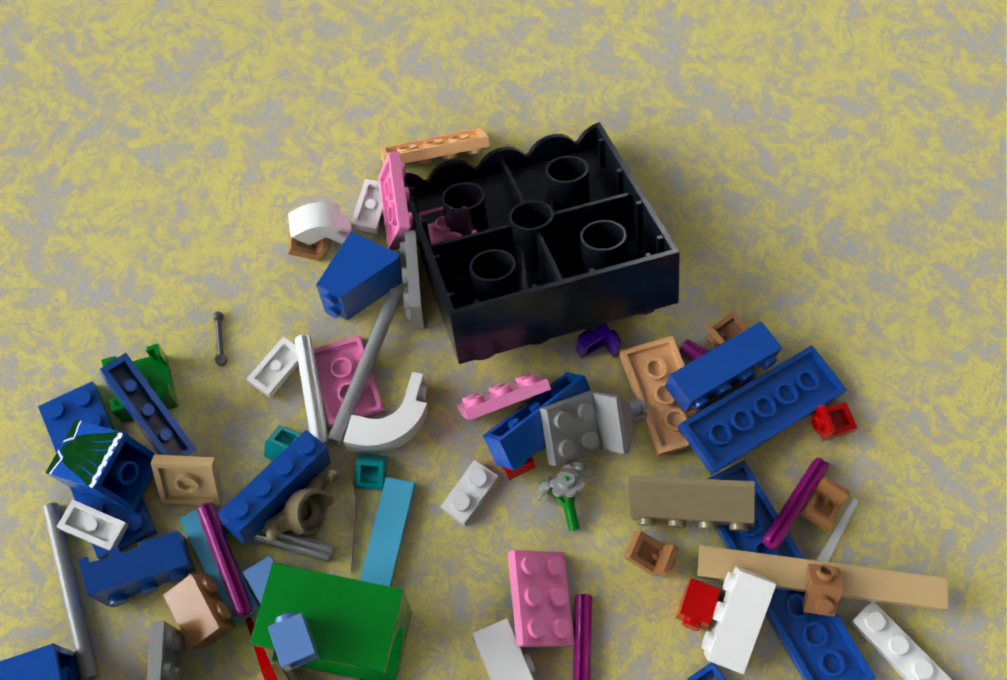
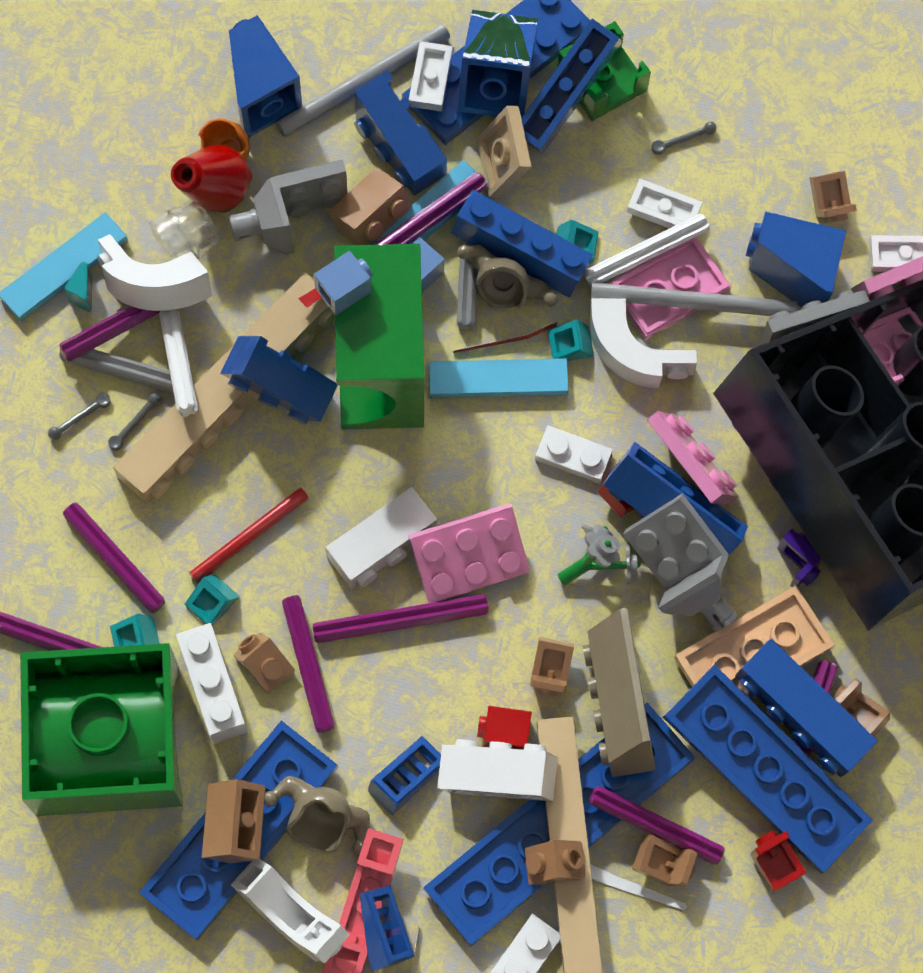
camera: 75 degrees right, 5 degrees up
(319, 221) = (856, 199): white brick -> none

